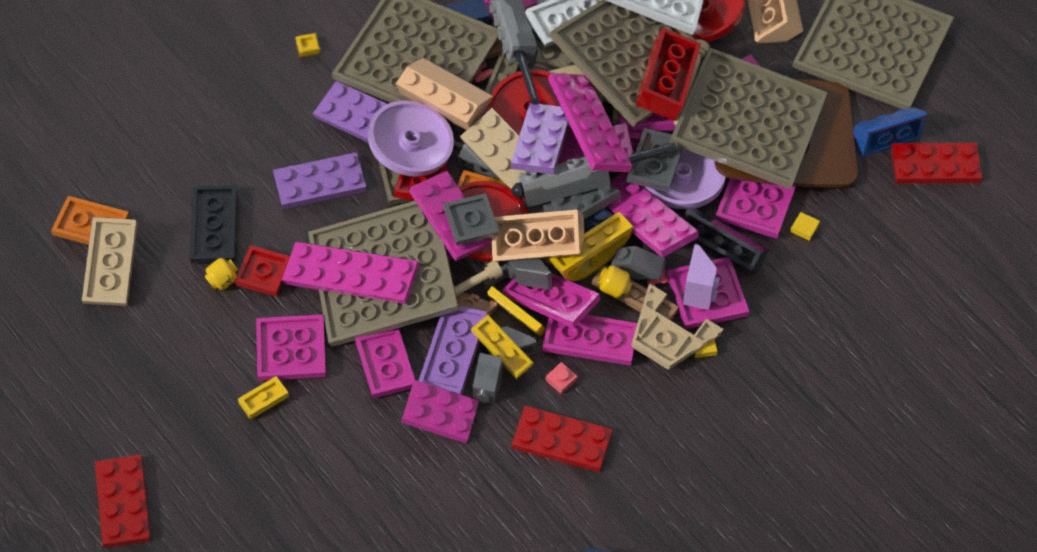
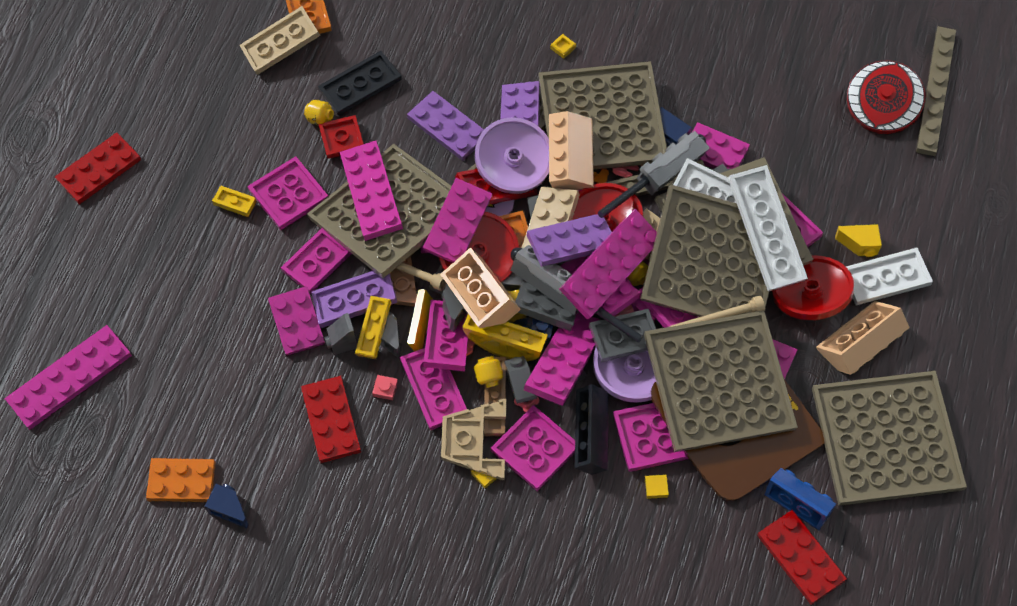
camera: 60 degrees right, 5 degrees up
(471, 219) = (455, 234): dark grey plate -> none
(668, 74) = (703, 292): red brick -> none
(701, 281) = (529, 430): lavender slope -> none

